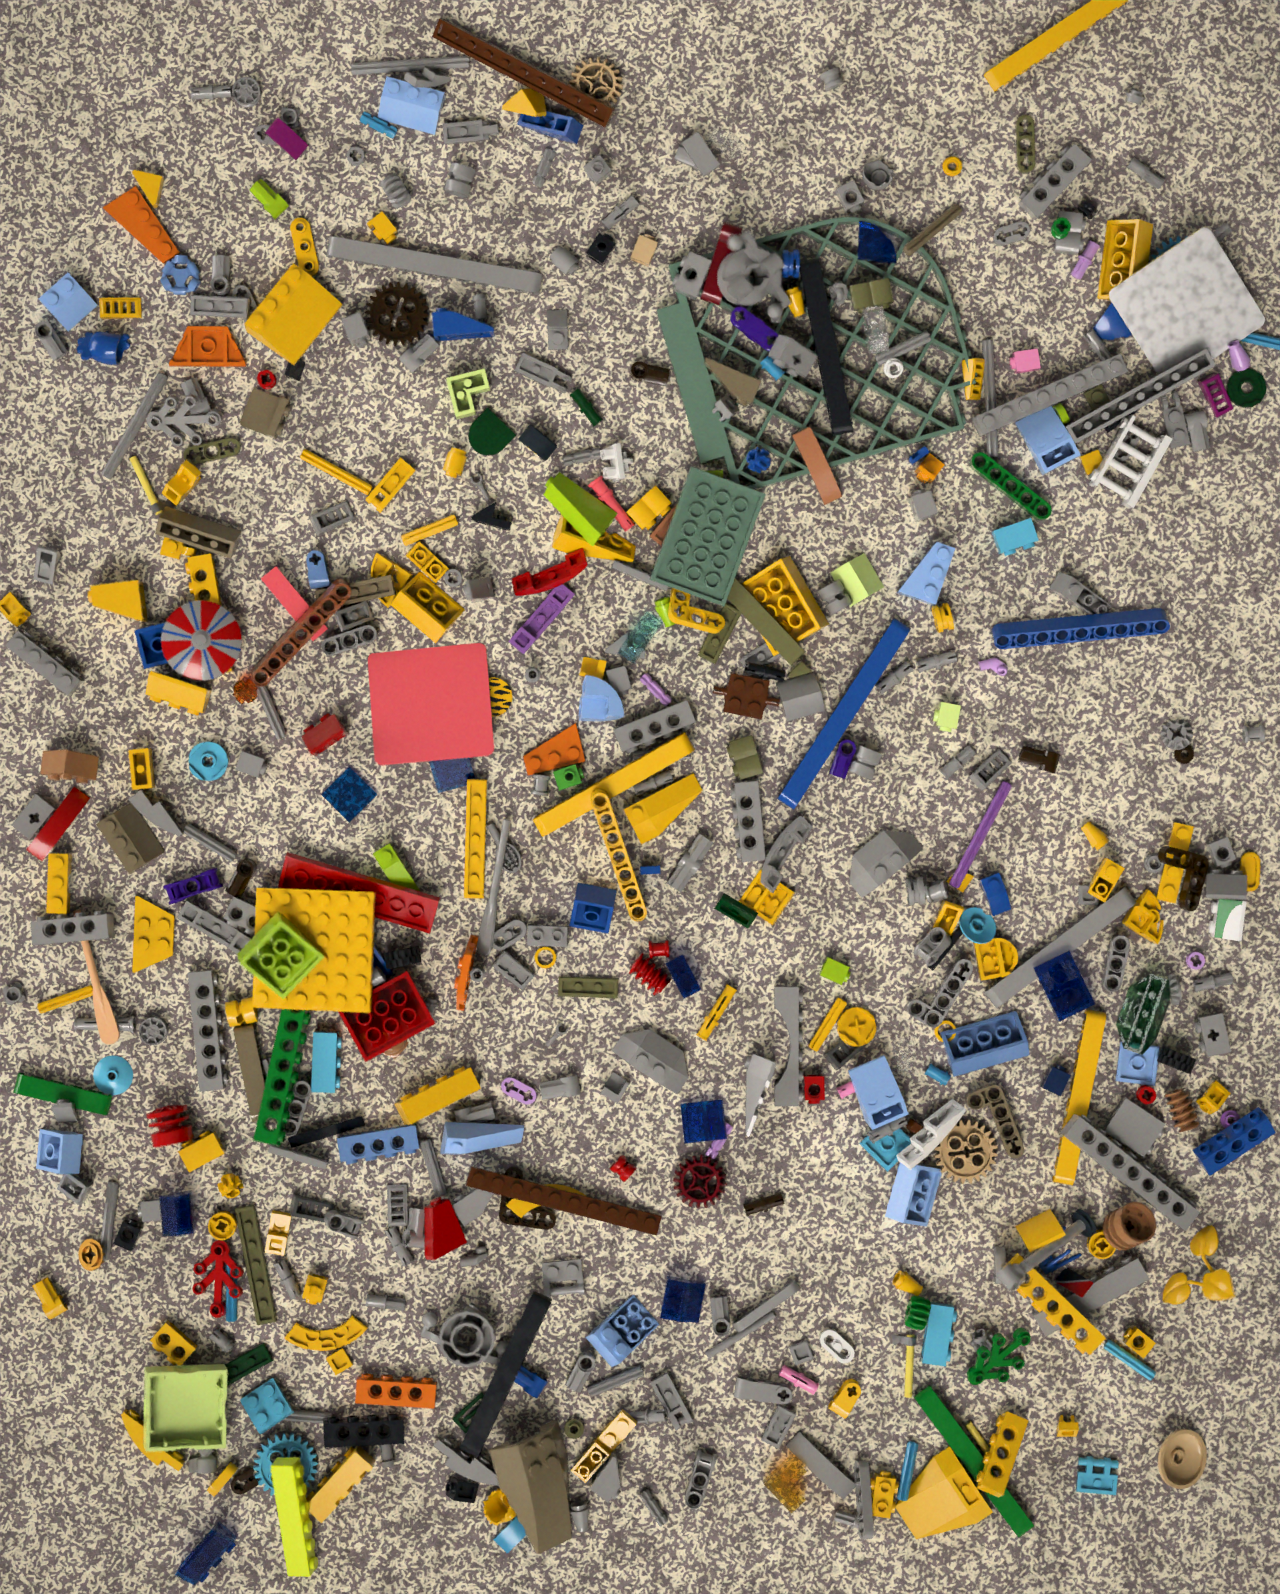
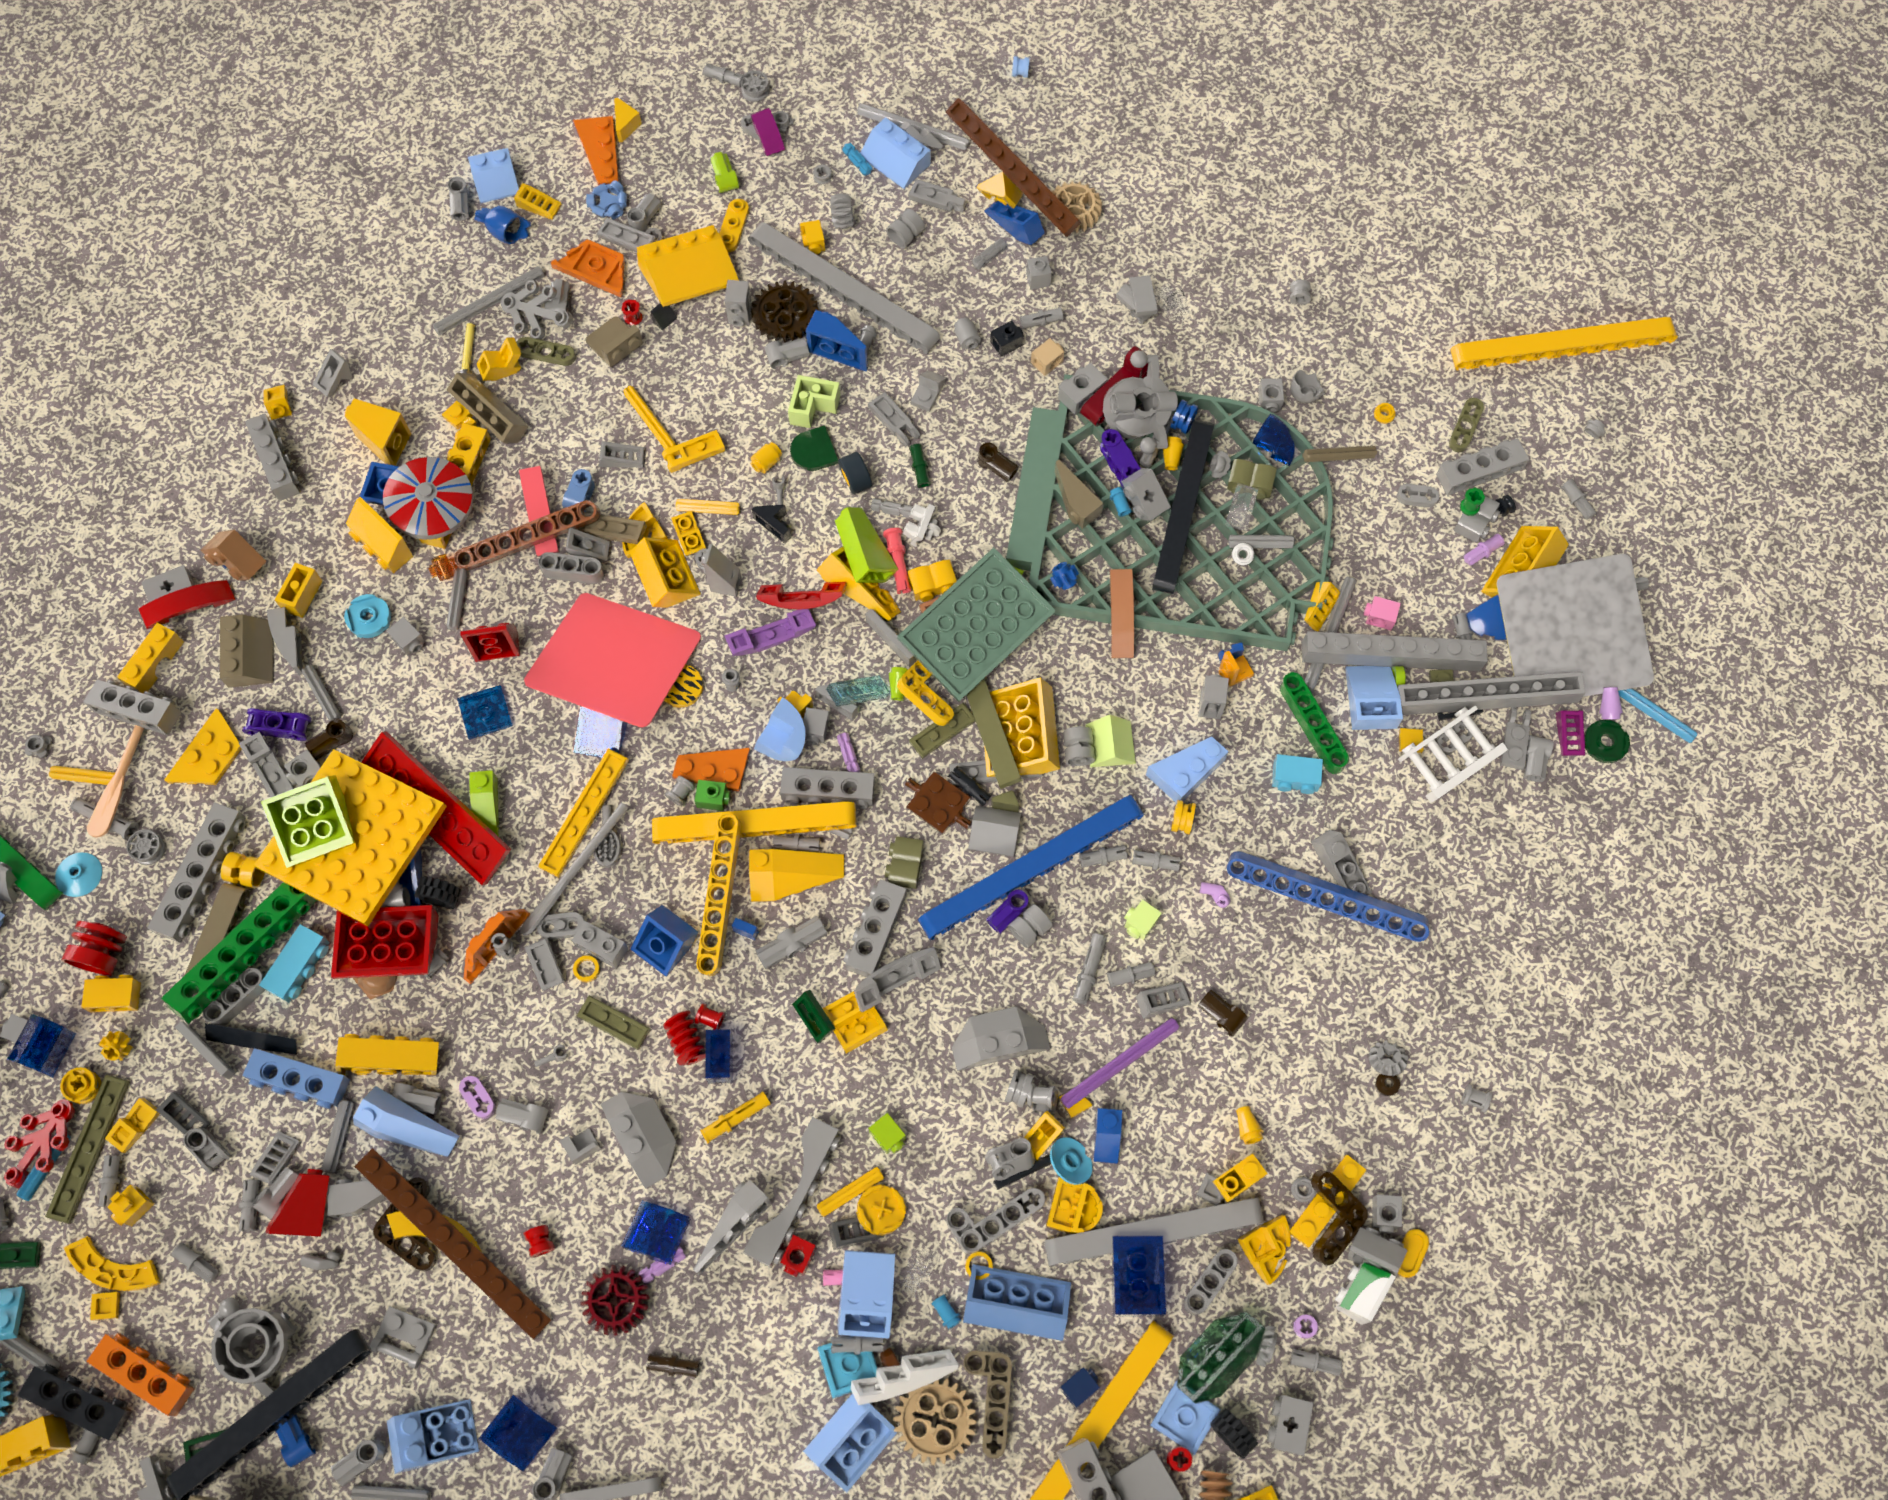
camera: 25 degrees right, 20 degrees down
(726, 407) = (1056, 515): light grey tile -> none
(926, 782) = (1086, 978): none -> light grey pin

